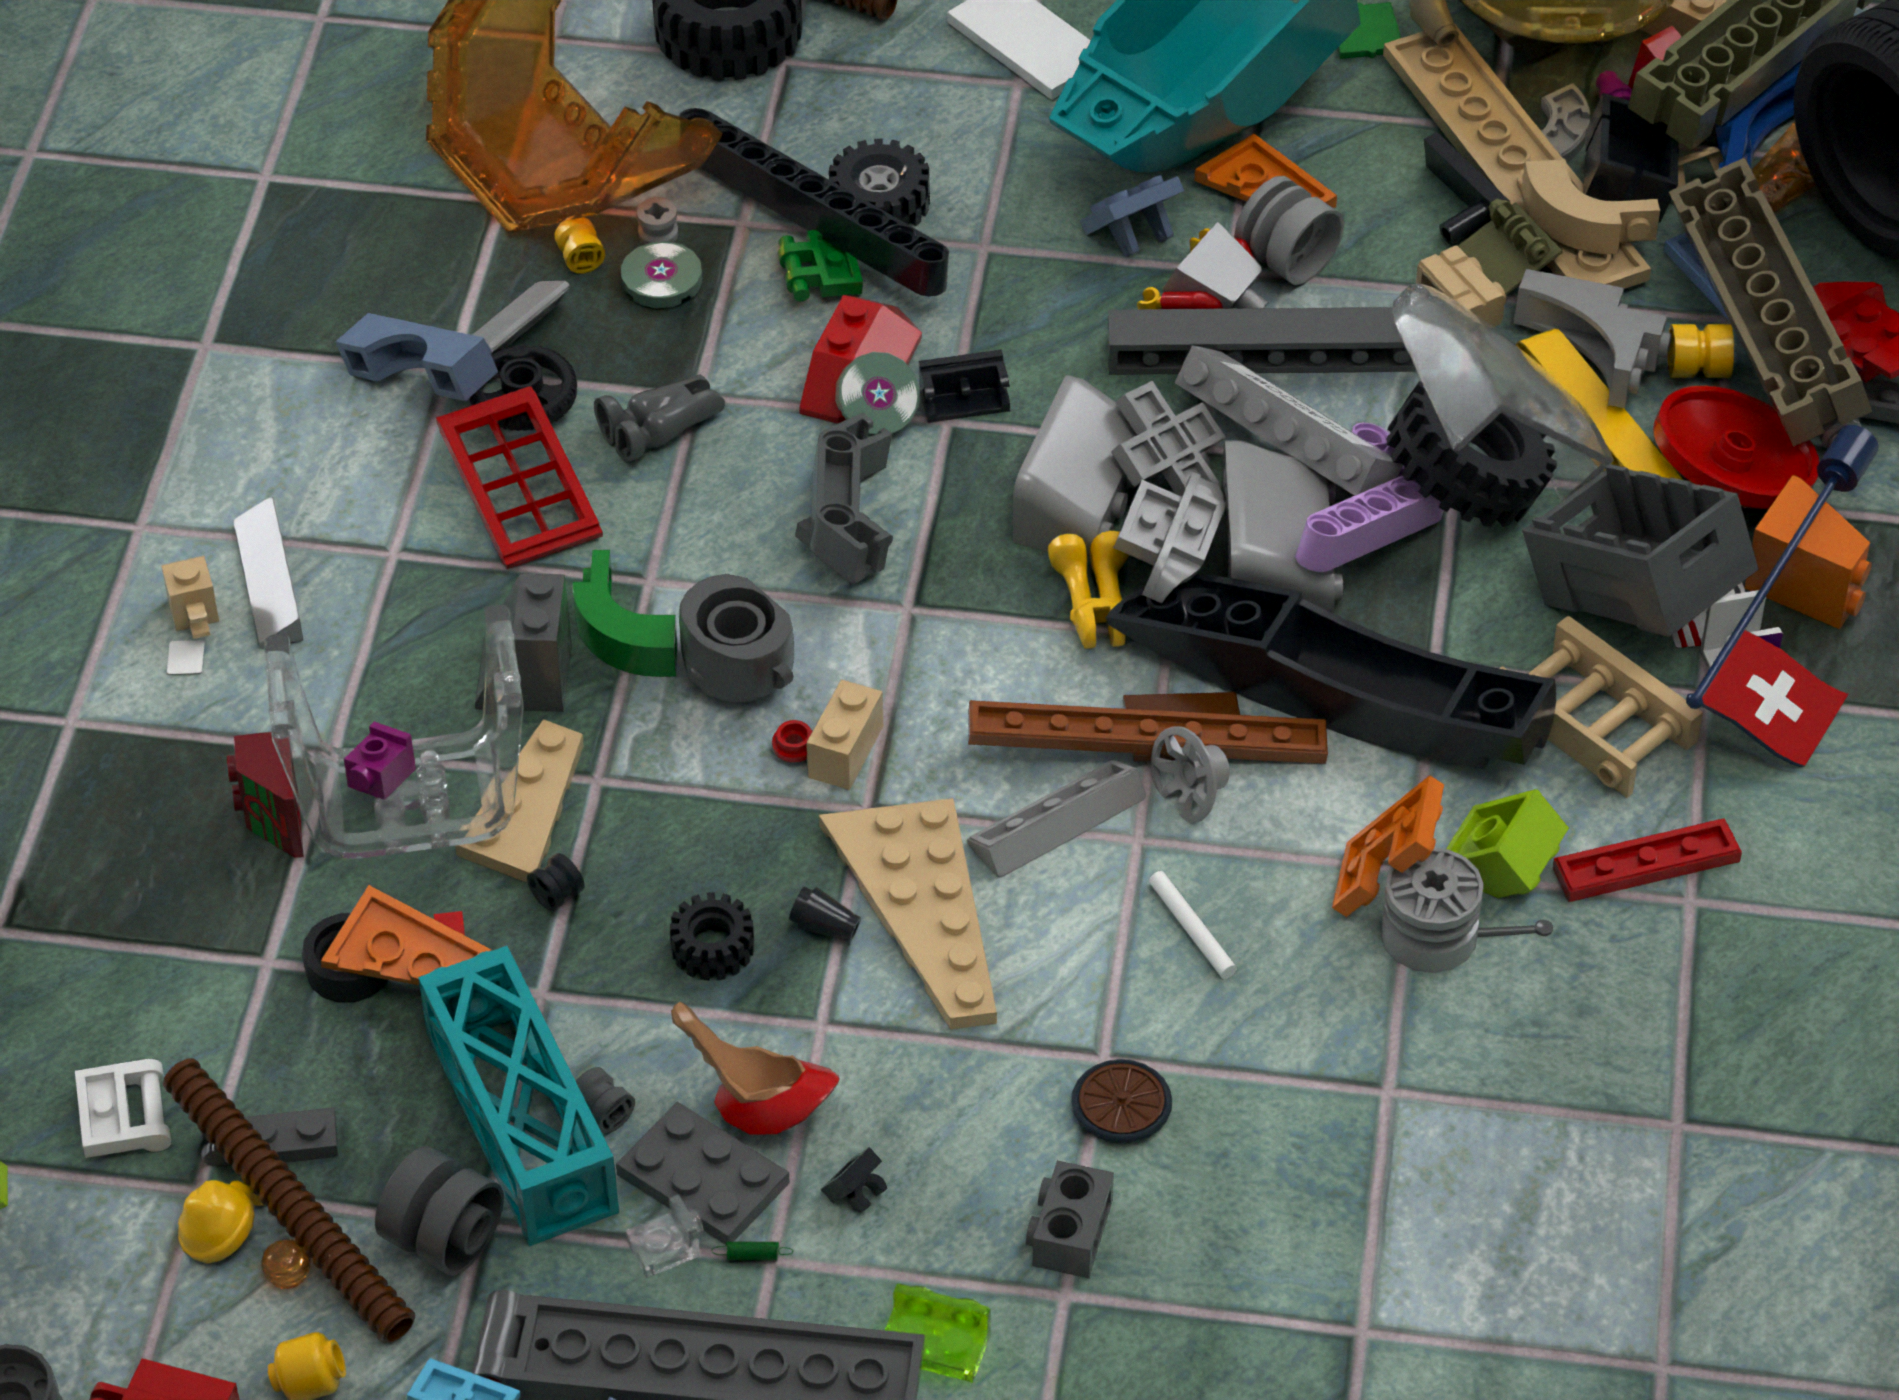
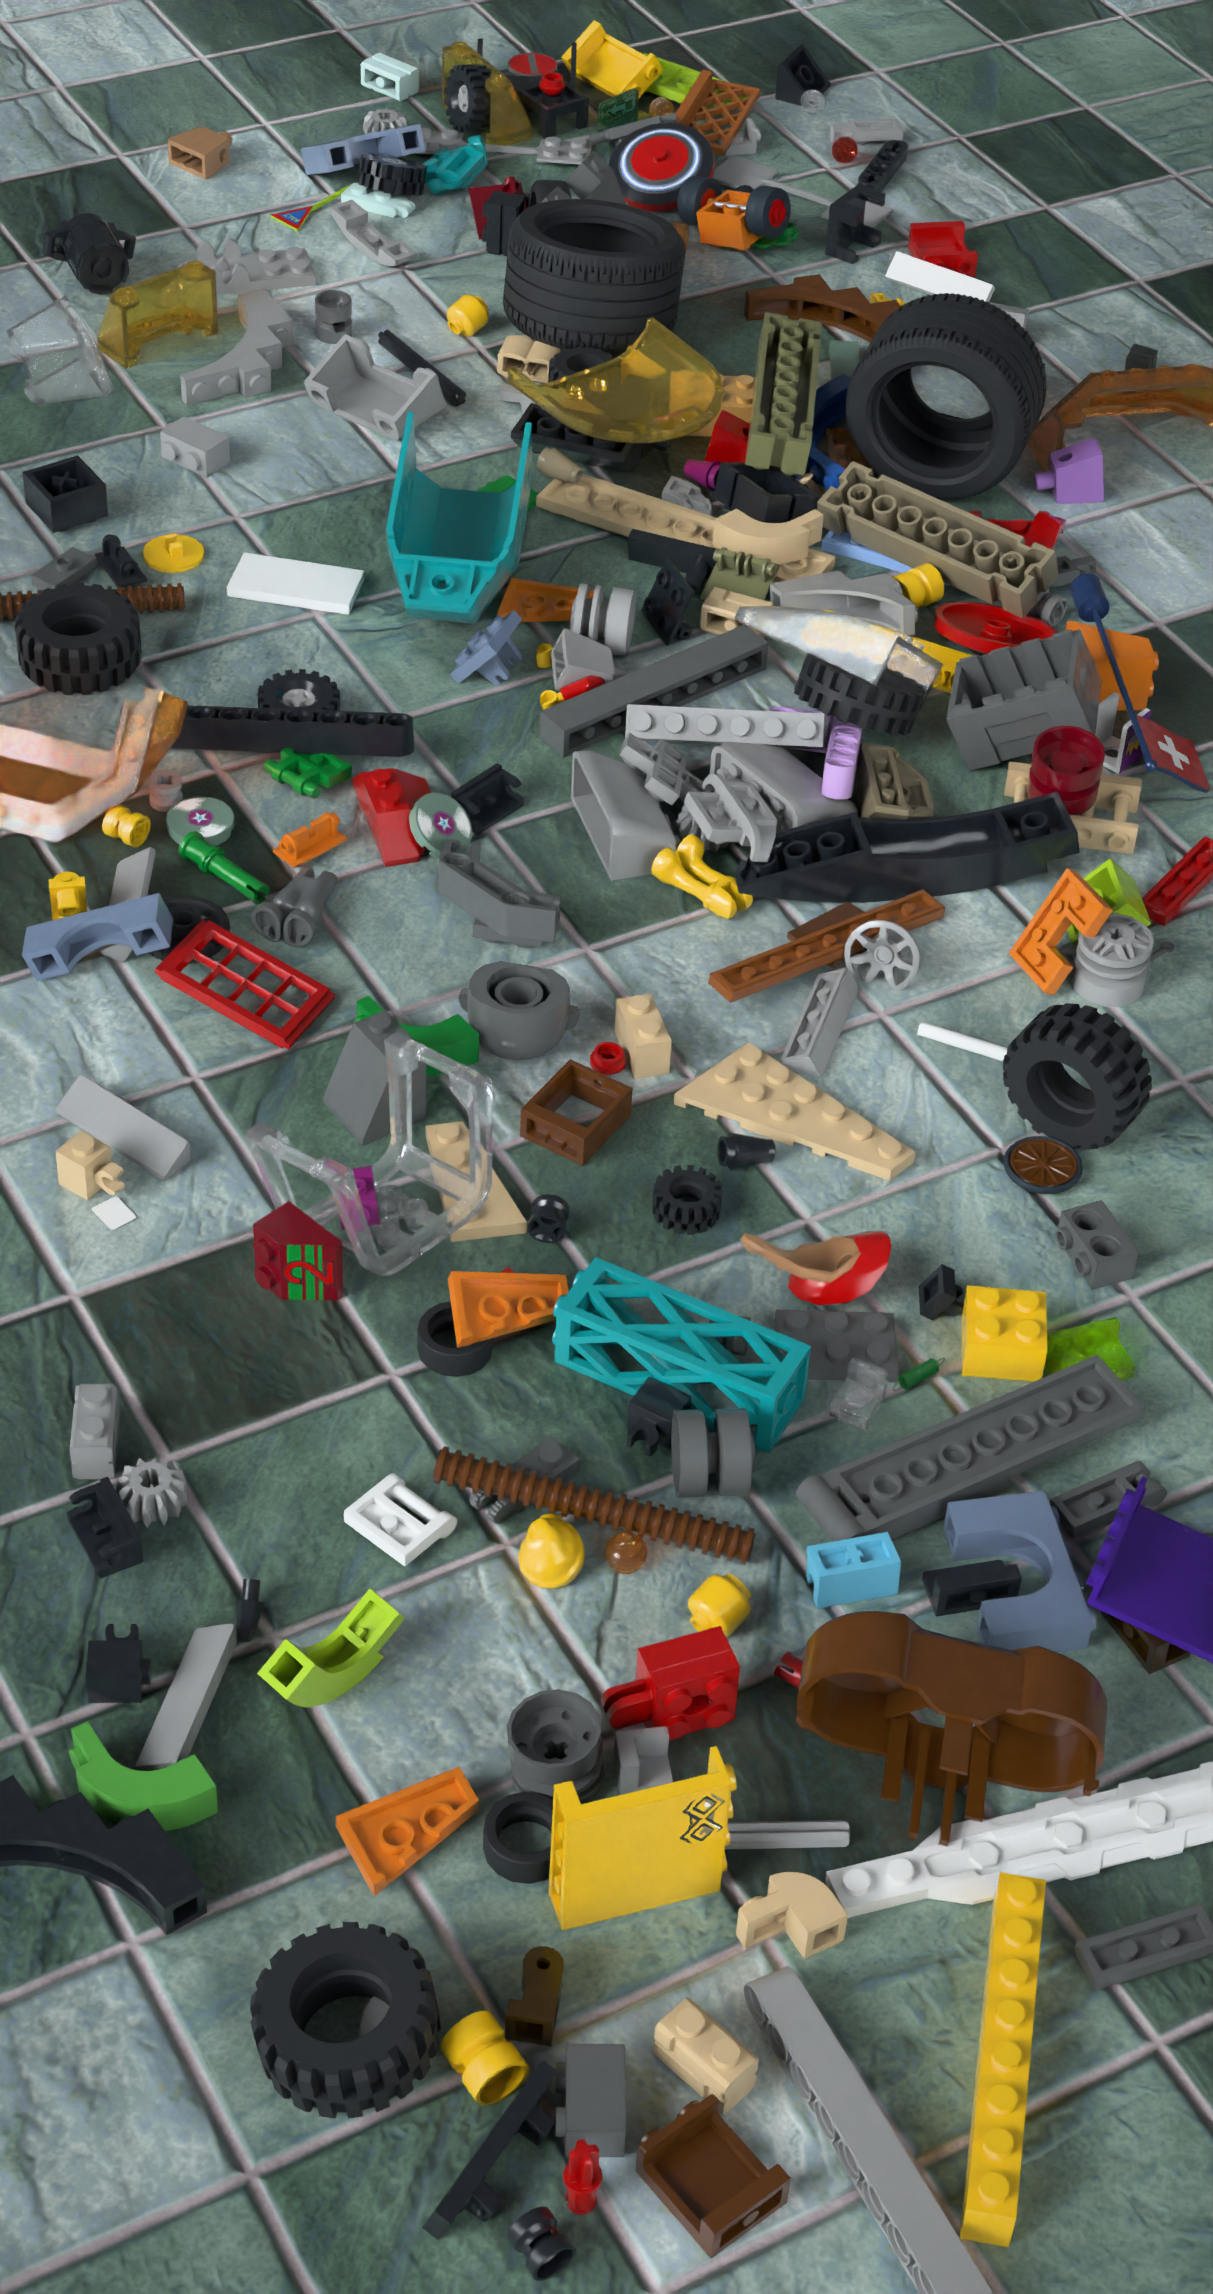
camera: 40 degrees left, 5 degrees down
(434, 300) = (67, 895): none -> yellow hips
(450, 1132) = (652, 1413): none -> black brick
(626, 326) = (213, 861): none -> green pin
(689, 754) = (564, 1136): none -> reddish brown window
(727, 351) = (306, 844): none -> orange hinge
(864, 1254) = (1004, 1333): none -> yellow brick
(1205, 1020) = (1099, 1053): none -> black tyre
(1388, 248) = (668, 604): none -> black hinge
(1399, 582) = (890, 785): none -> dark tan wedge
(1594, 658) = (1067, 763): none -> dark red wheel

